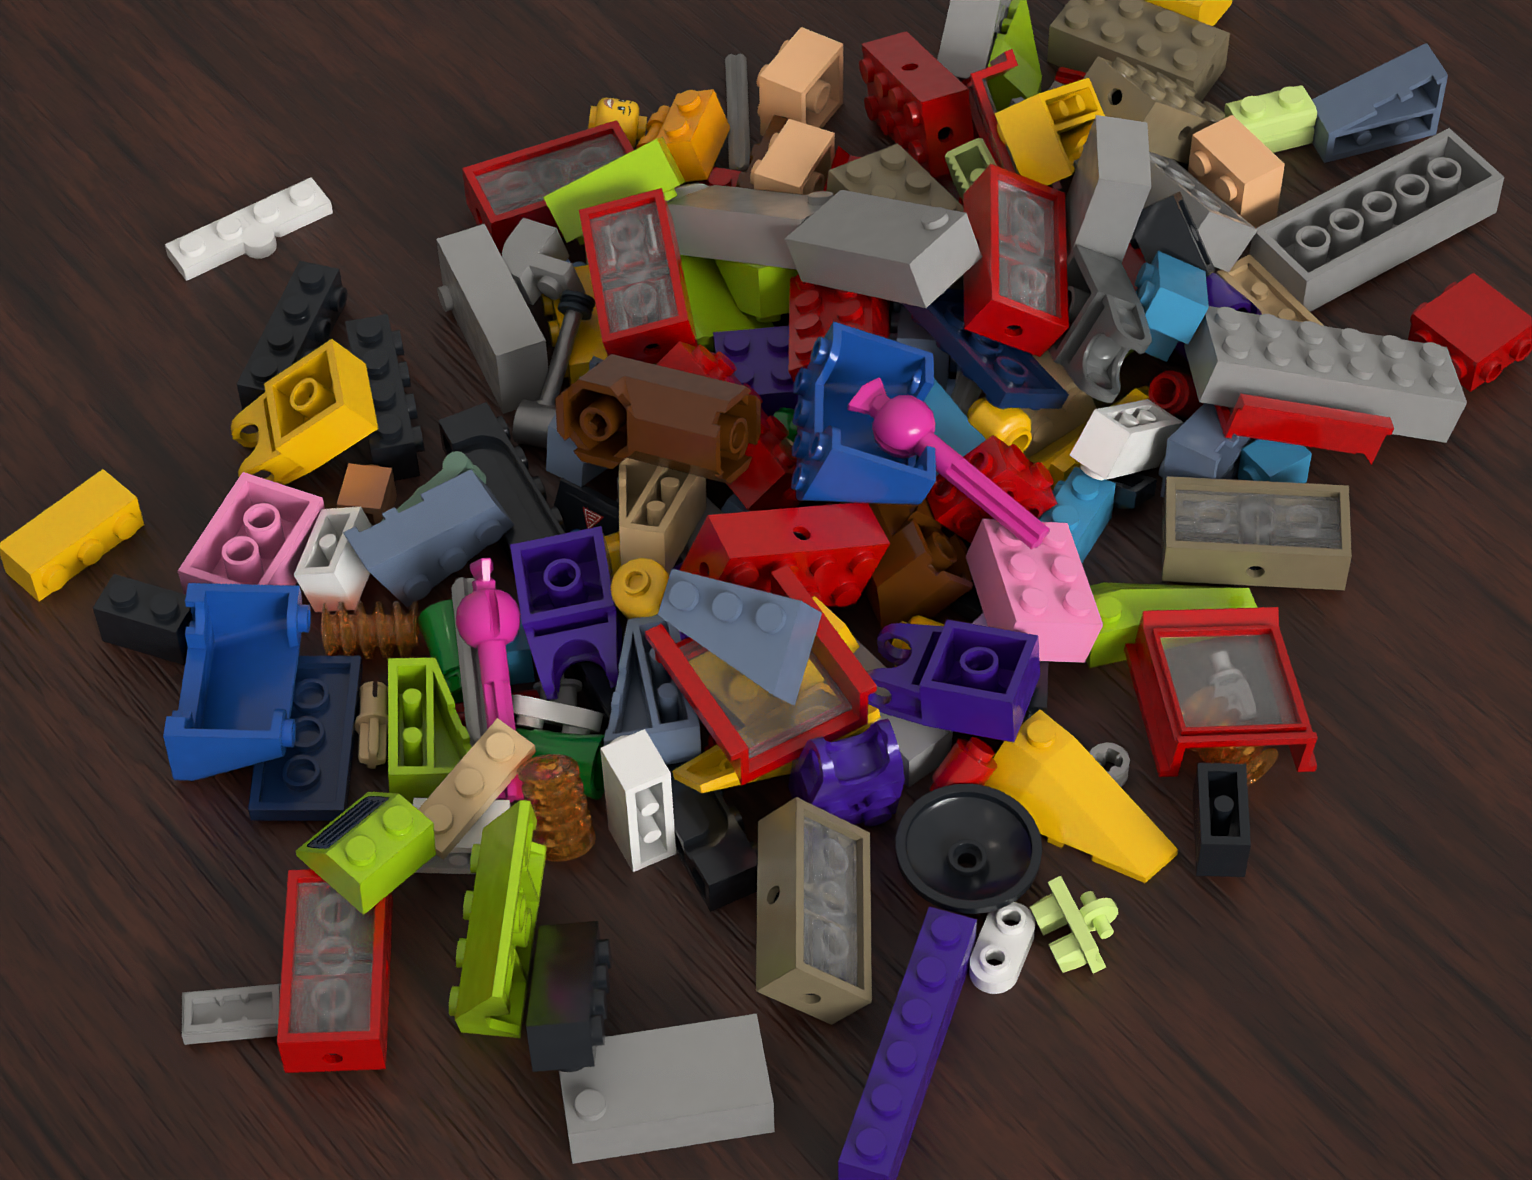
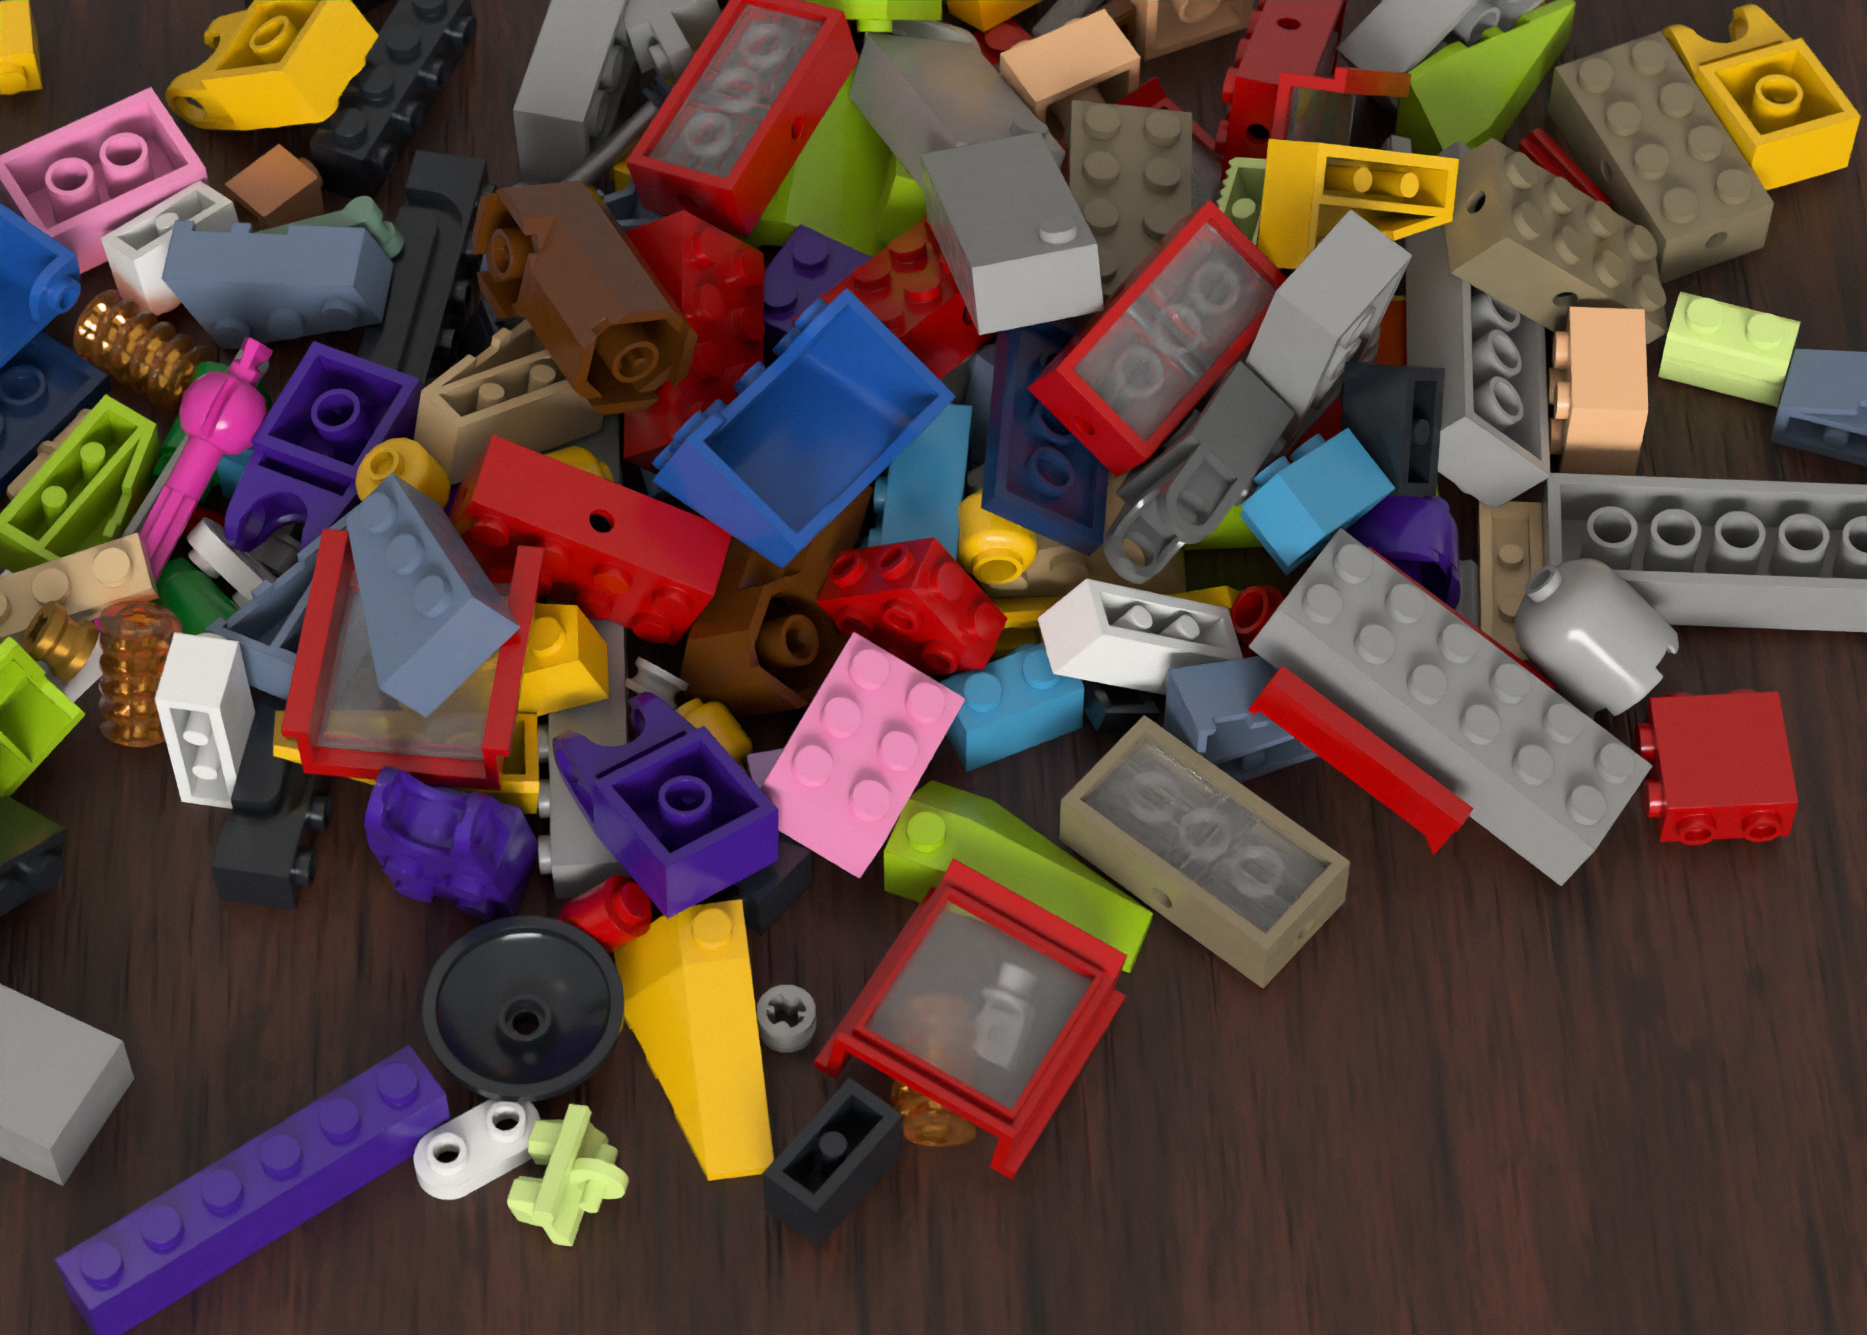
camera: 35 degrees right, 5 degrees up
(495, 800) = (60, 640): none -> pearl gold wheel
(813, 912) = (288, 968): dark tan brick -> none
(872, 623) = (656, 680): none -> light grey bush
(907, 426) = (841, 467): dark pink piece -> none
(1274, 462) = (1310, 788): dark azure brick -> none
(1357, 294) = (1592, 635): none -> light grey cylinder

